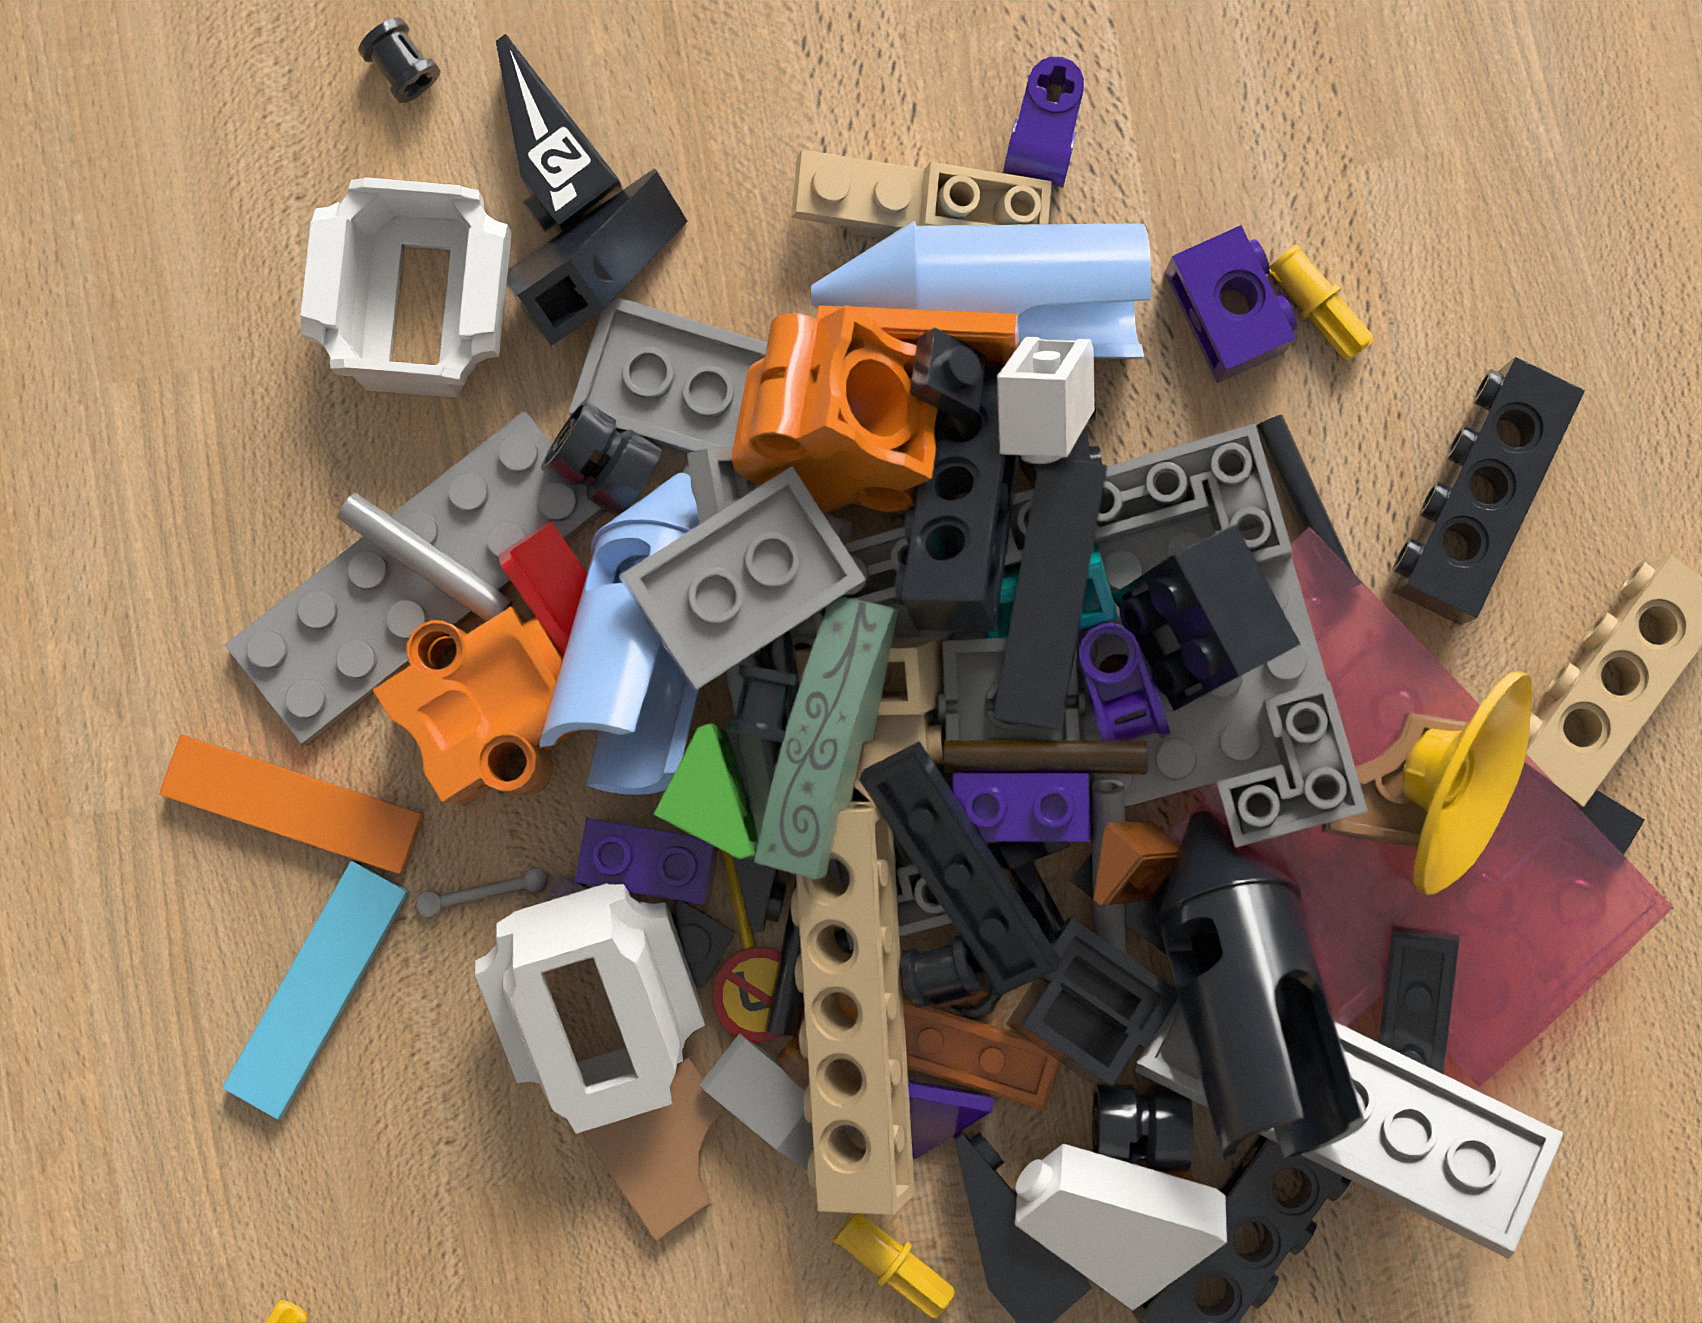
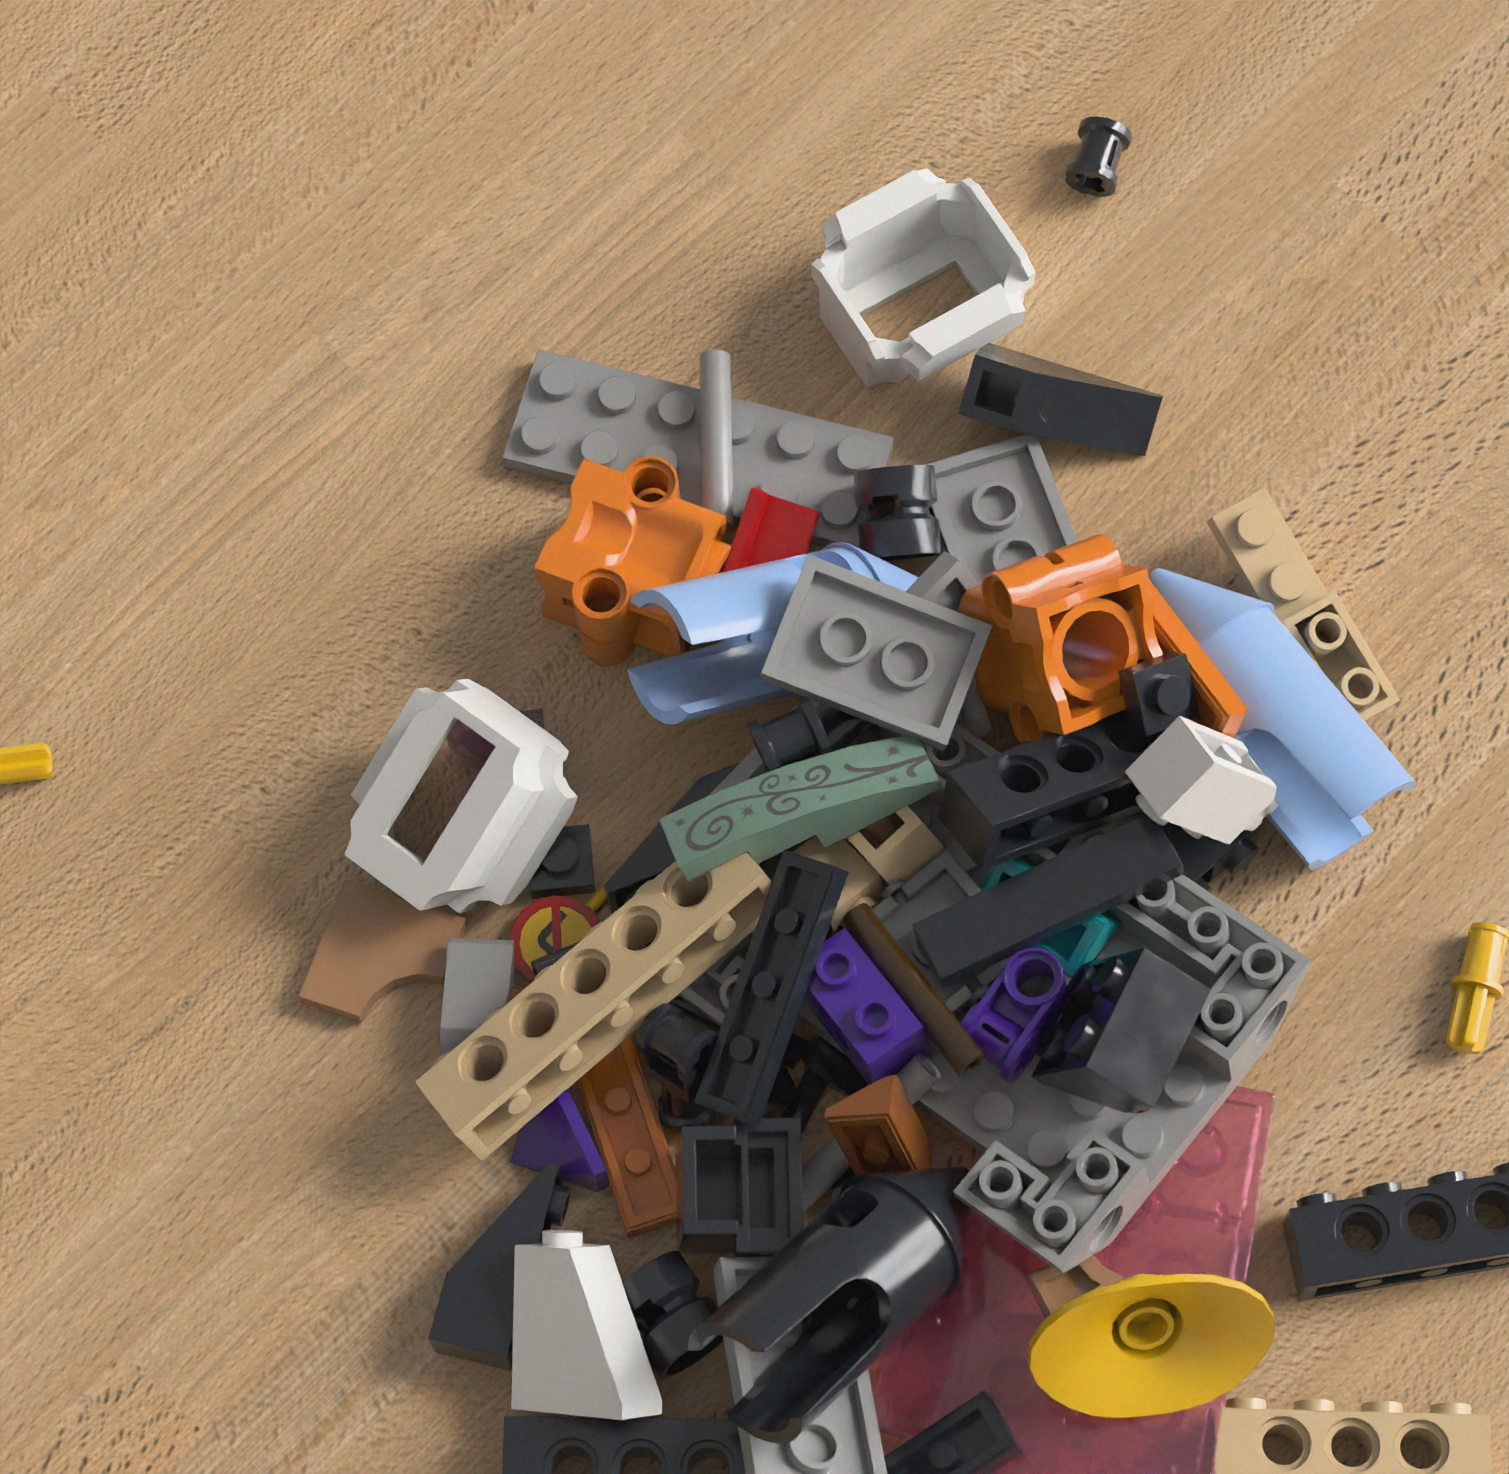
camera: 55 degrees right, 15 degrees down
(292, 804) = (449, 487): orange tile -> none
(316, 990) = (315, 604): medium azure tile -> none
(432, 903) = (446, 644): light grey hinge -> none
(553, 154) = (1116, 308): slope -> none
(647, 861) = (604, 775): dark purple brick -> none
(710, 795) = (692, 751): bright green slope -> none
(895, 1265) = (412, 1199): yellow axle -> none
(1045, 129) = (1434, 669): dark purple piece -> none
(1226, 339) = (1425, 877): dark purple brick -> none
(1297, 483) = (1306, 1084): black piece -> none

